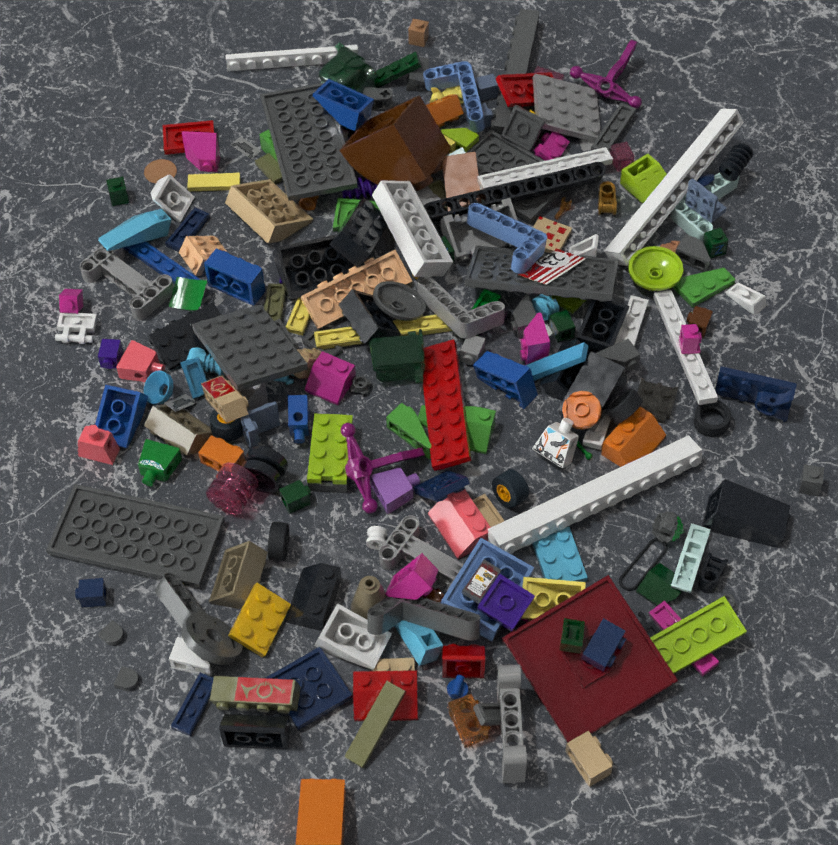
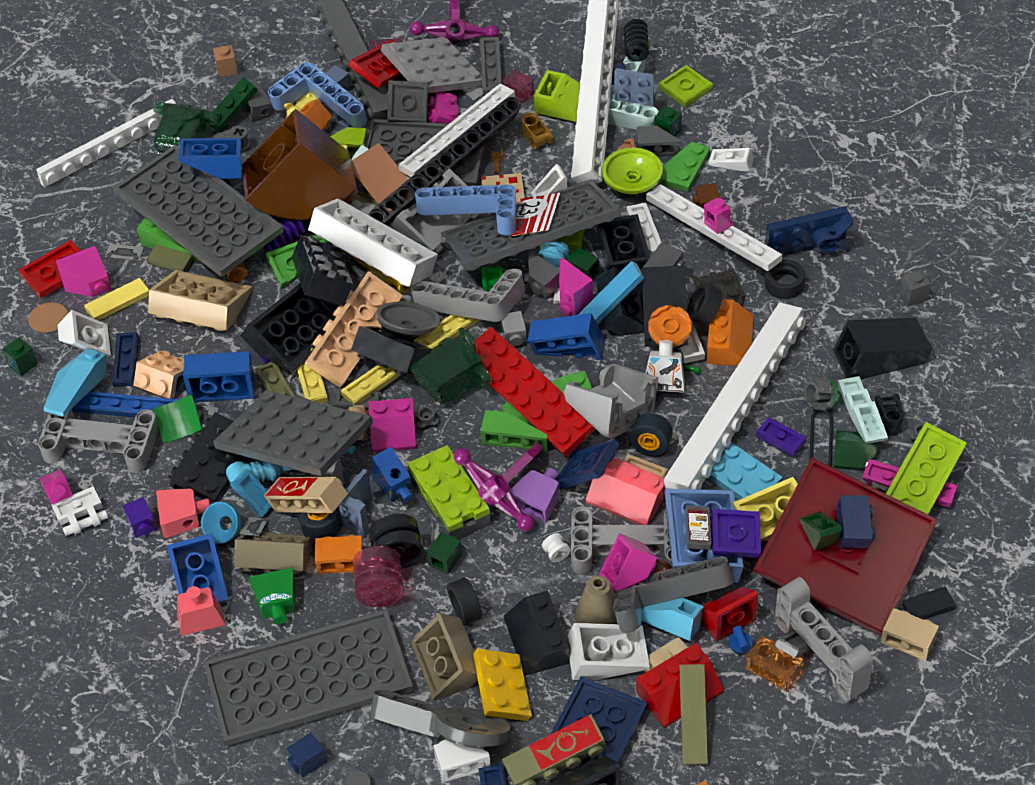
camera: 30 degrees left, 5 degrees down
(498, 449) = (617, 400): none -> light grey windscreen
(611, 544) = (781, 436): none -> dark purple plate
(624, 743) = (929, 603): none -> black tile
(755, 218) = (685, 86): none -> lime tile

